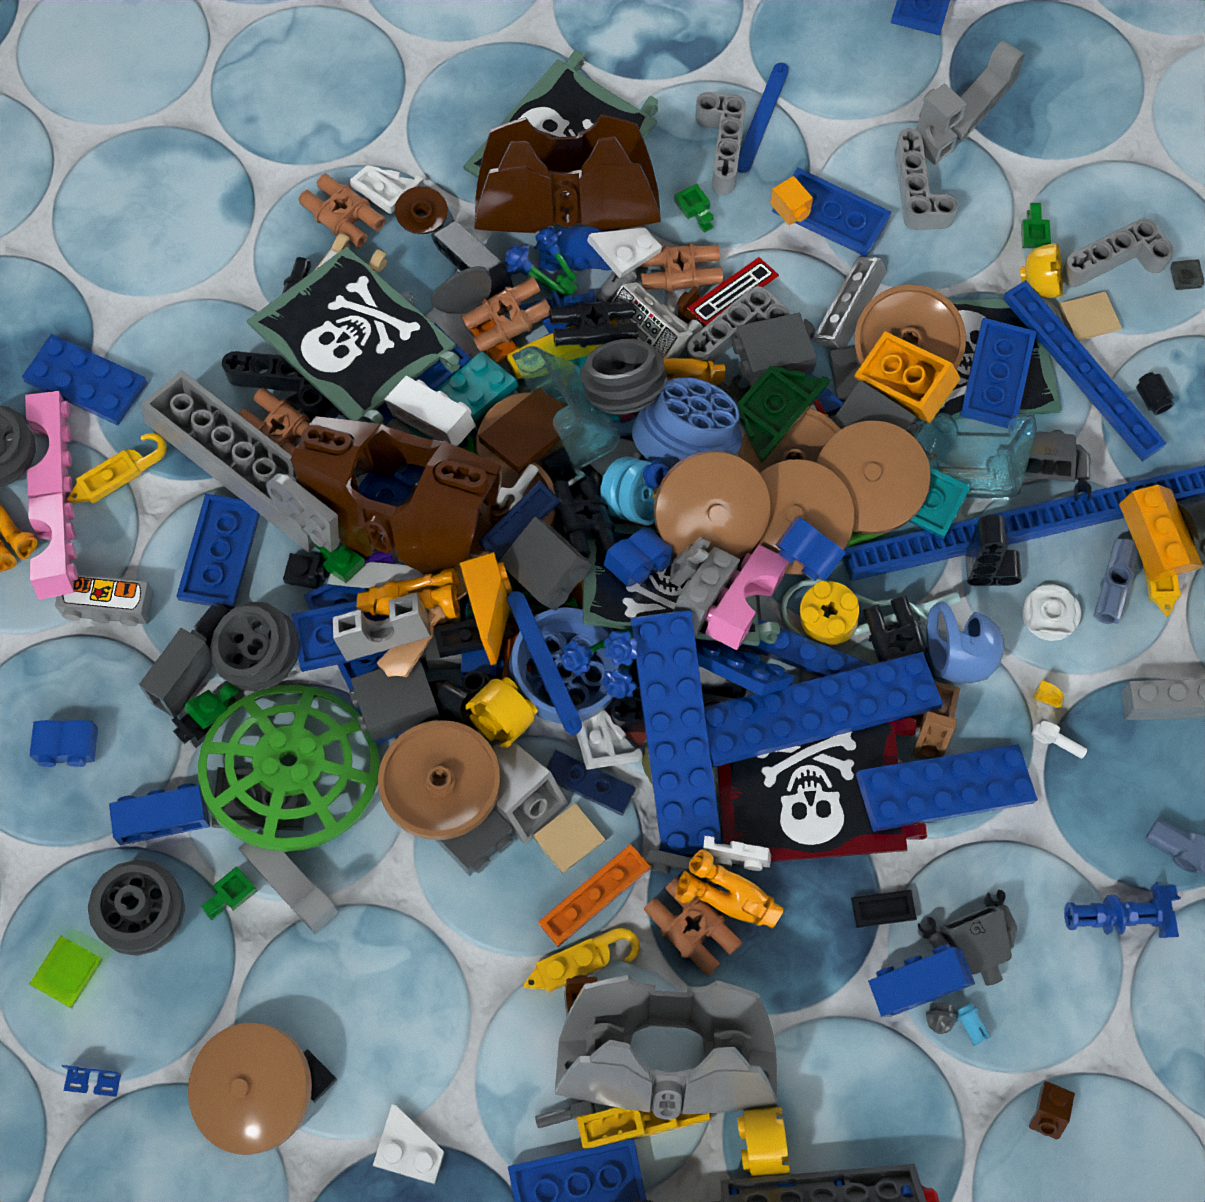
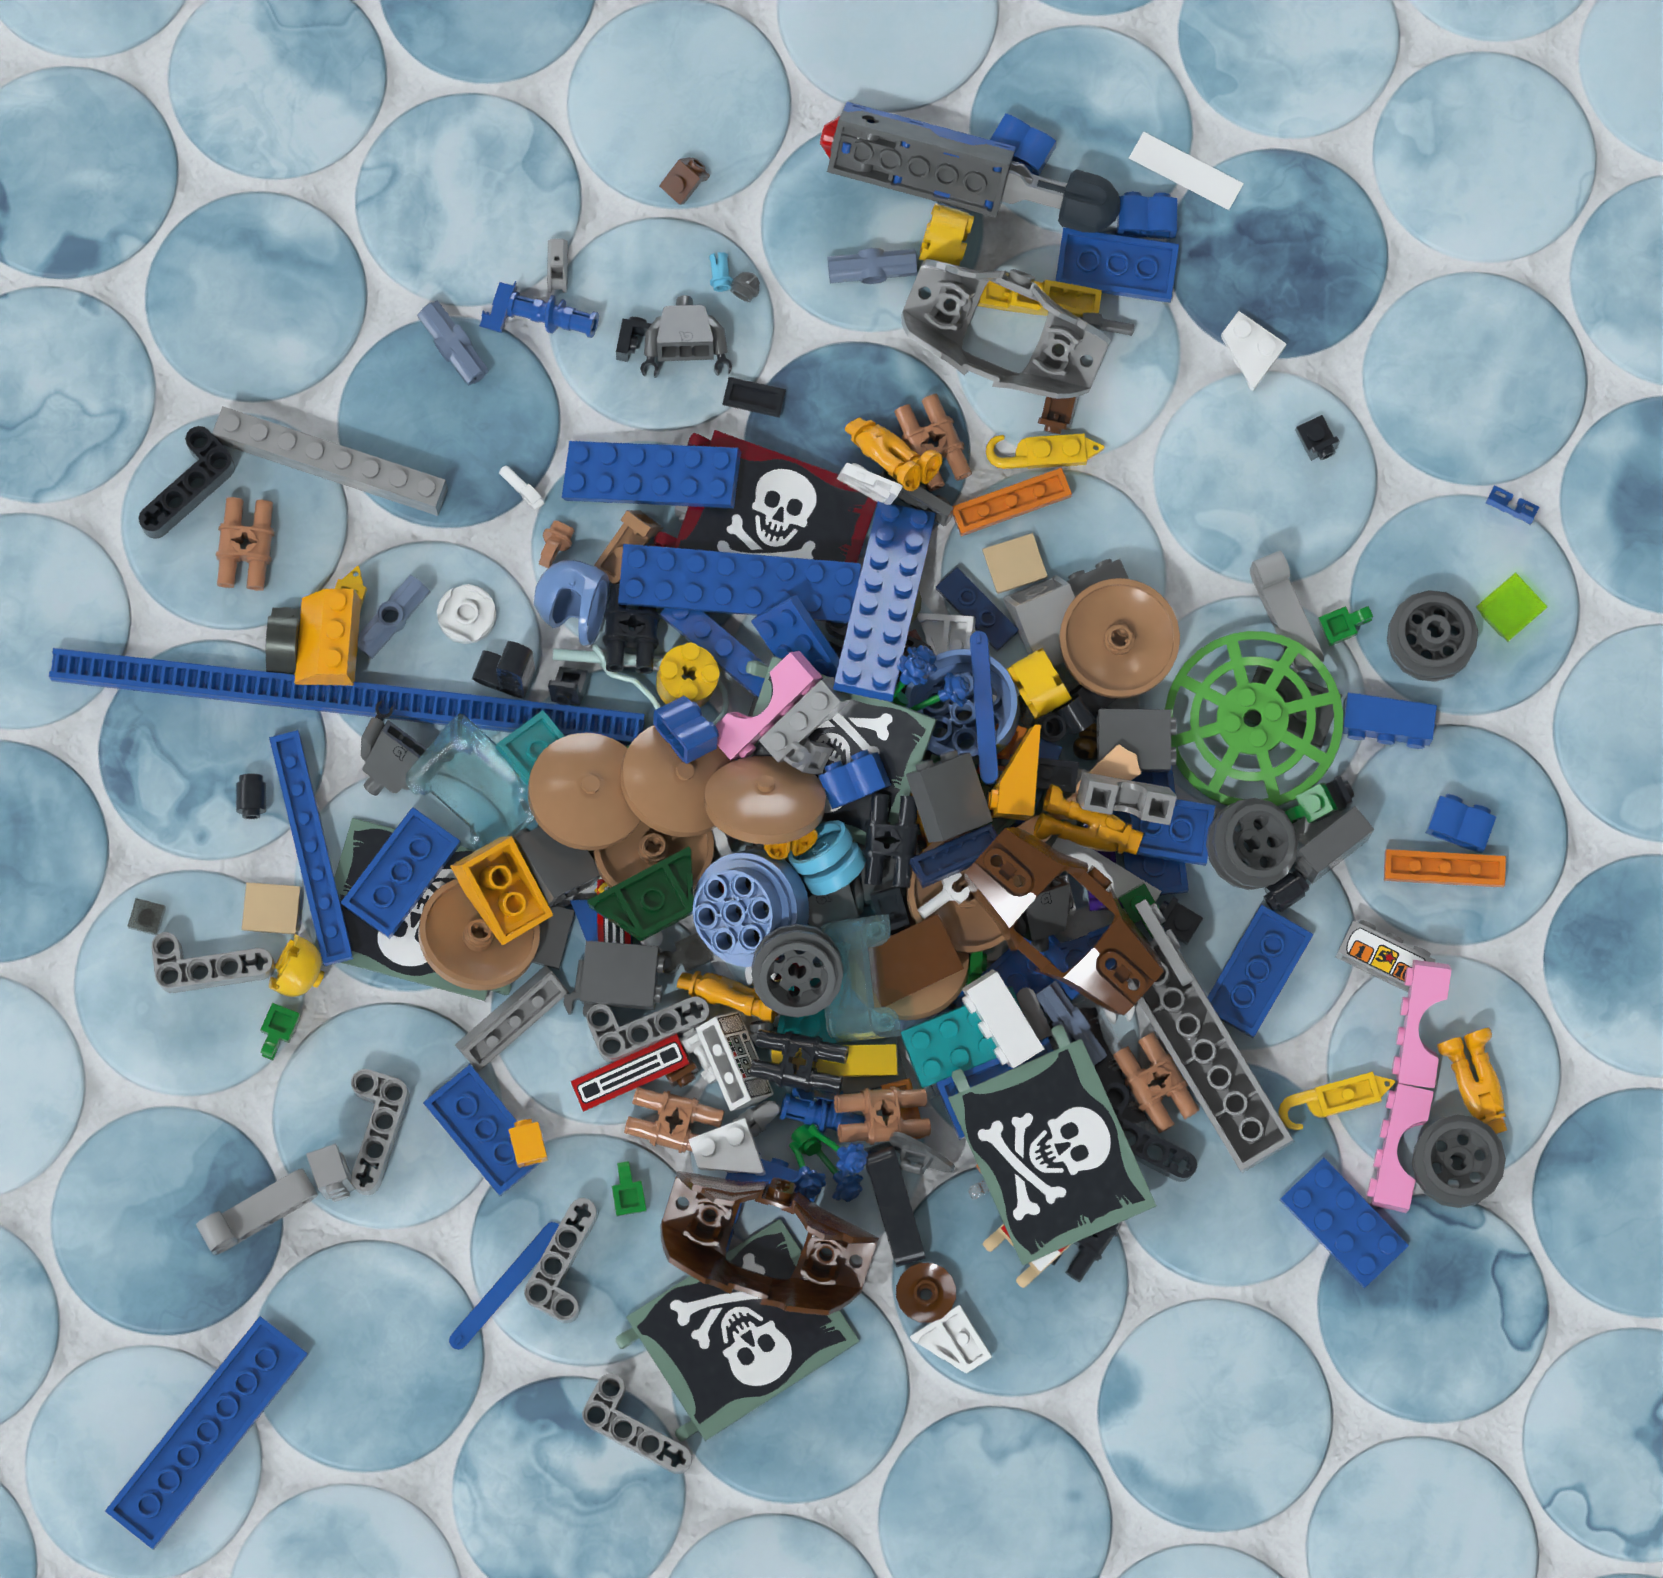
camera: 160 degrees left, 10 degrees up
(69, 698) = (1444, 868): none -> orange plate
(249, 1088) = (1374, 441): medium nougat dish -> none
(341, 210) = (1017, 1311): nougat pin -> none
(617, 45) = (639, 1430): none -> light grey beam
(654, 474) = (808, 846): blue plate -> none
(825, 1087) = (872, 266): none -> sand blue piece
(921, 980) = (754, 314): blue brick -> none
(930, 575) = (568, 686): none -> black bracket
(1003, 708) = (556, 540): none -> nougat piece
(1030, 915) = (626, 341): none -> black bracket
(1048, 694) = (511, 533): yellow tile -> none
(1135, 974) = (557, 262): none -> light grey bar

